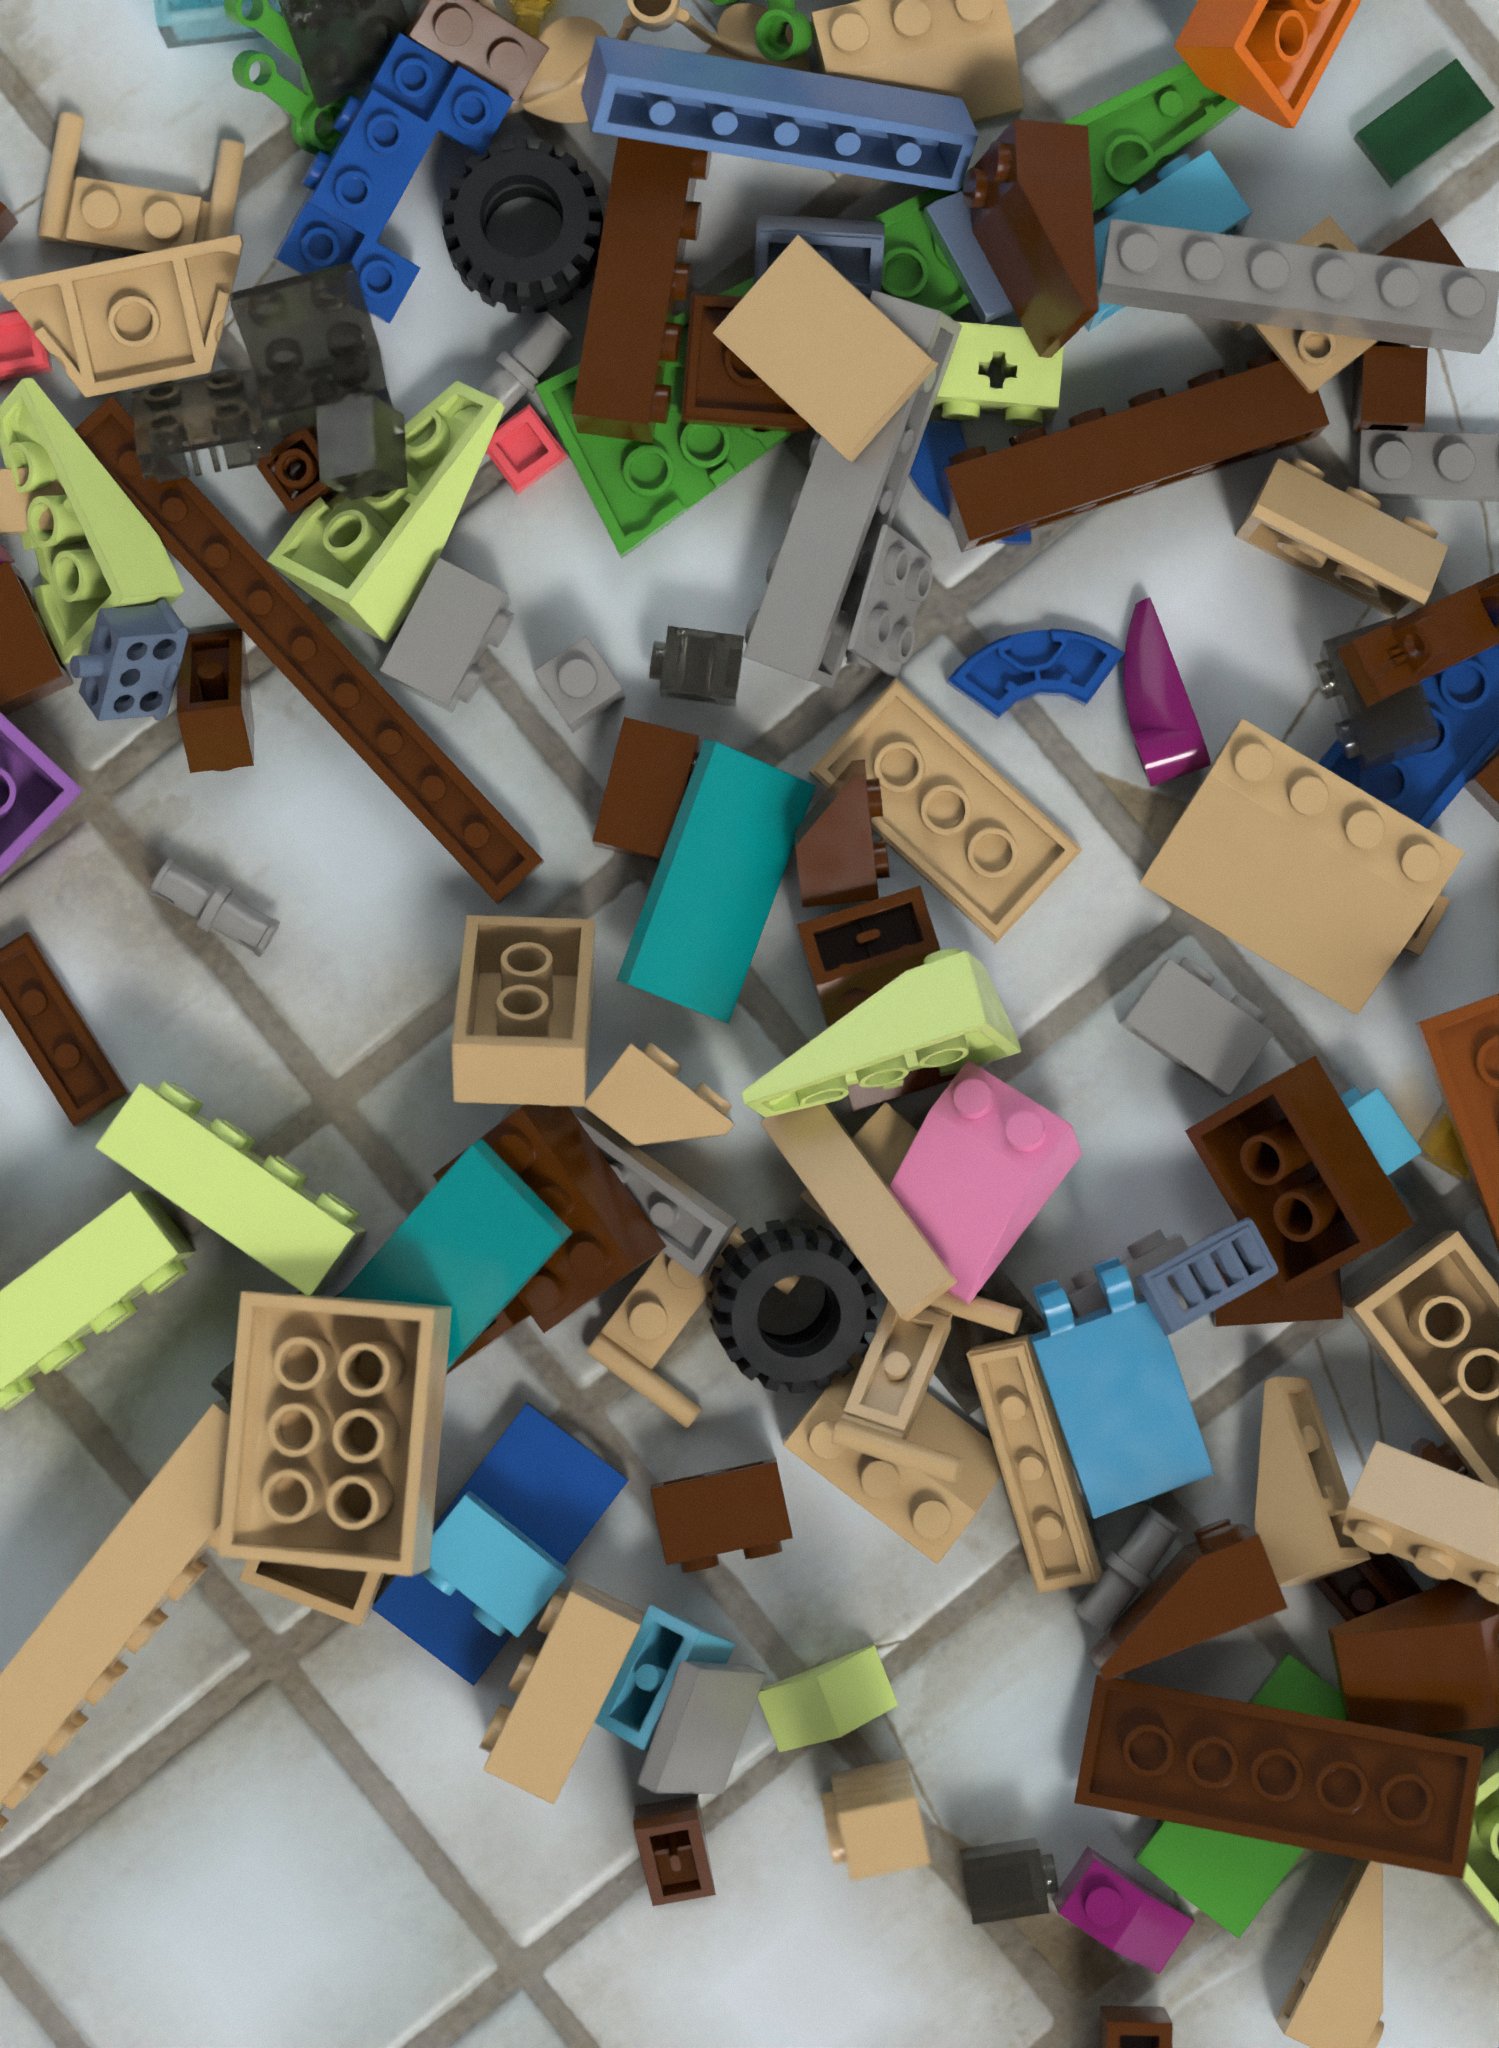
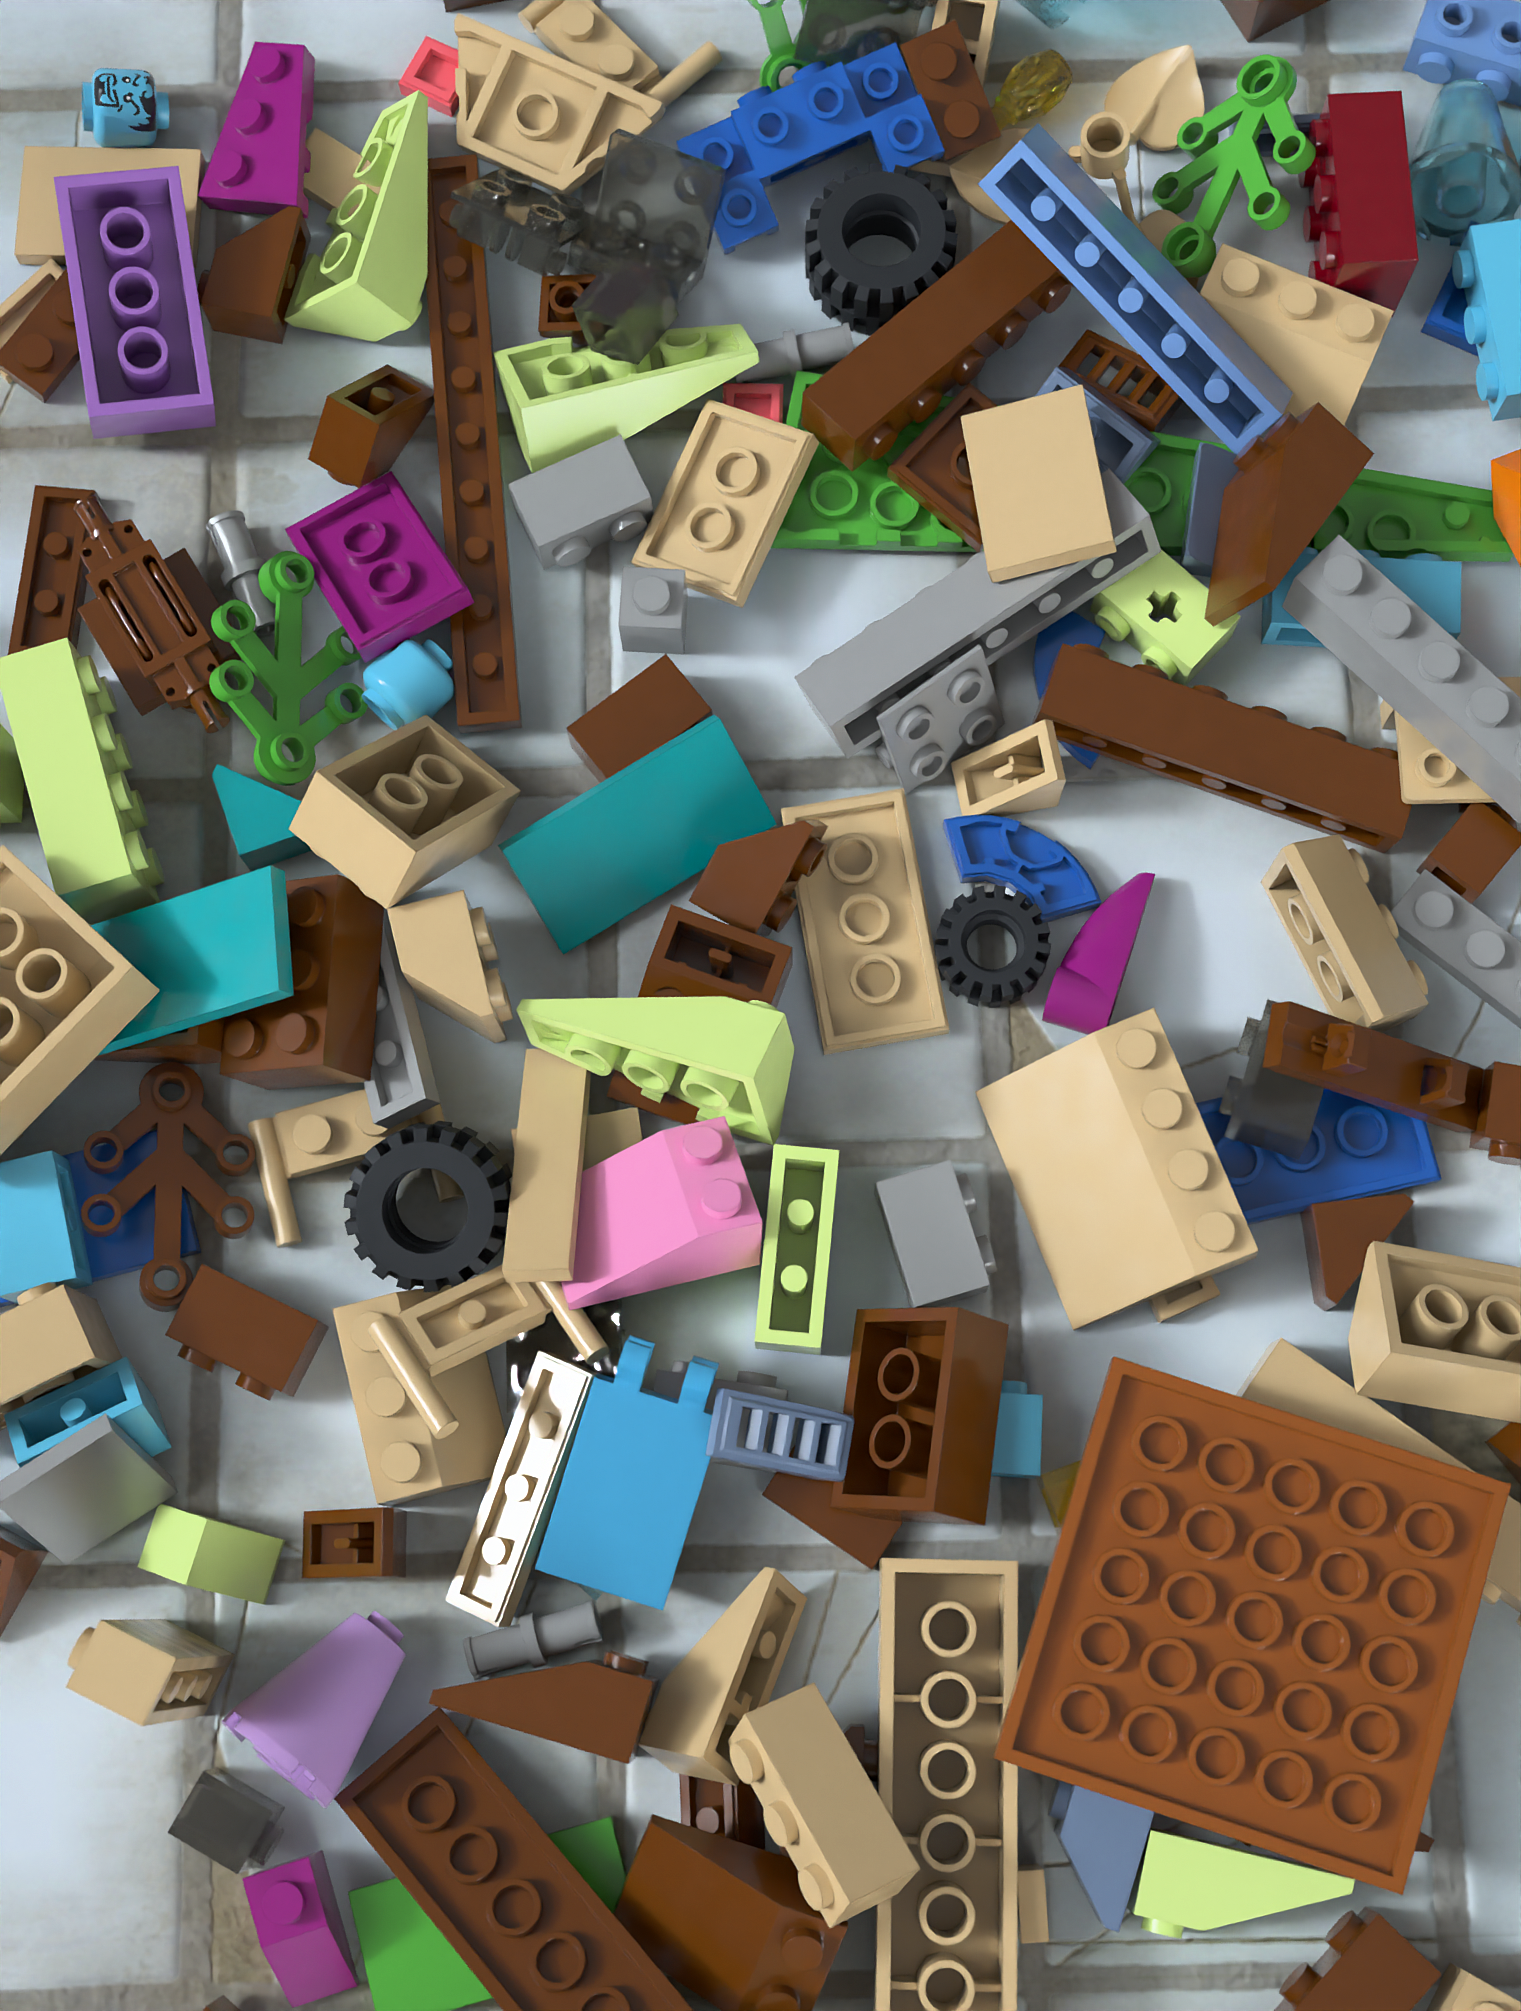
camera: 45 degrees right, 10 degrees down
(132, 661) = (328, 341): sand blue piece -> none
(180, 1006) = (151, 618): none -> reddish brown piece
(323, 818) = (379, 566): none -> magenta tile
(324, 969) = (283, 674): none -> bright green plant
(403, 1100) = (258, 819): none -> teal slope
(426, 897) = (408, 682): none -> medium azure head
(559, 1437) = (168, 1171): none -> reddish brown plant
(565, 546) = (726, 500): none -> tan tile
(698, 665) = (756, 665): clear smoke brick -> none
(753, 193) = (1129, 366): none -> reddish brown slope
(933, 1607) = (355, 1543): none -> reddish brown slope
(974, 603) = (1012, 774): none -> tan slope
(1011, 1742) = (322, 1705): none -> lavender cone
(1073, 718) = (992, 909): none -> black tyre
(1104, 1120) = (796, 1249): none -> yellowish green brick

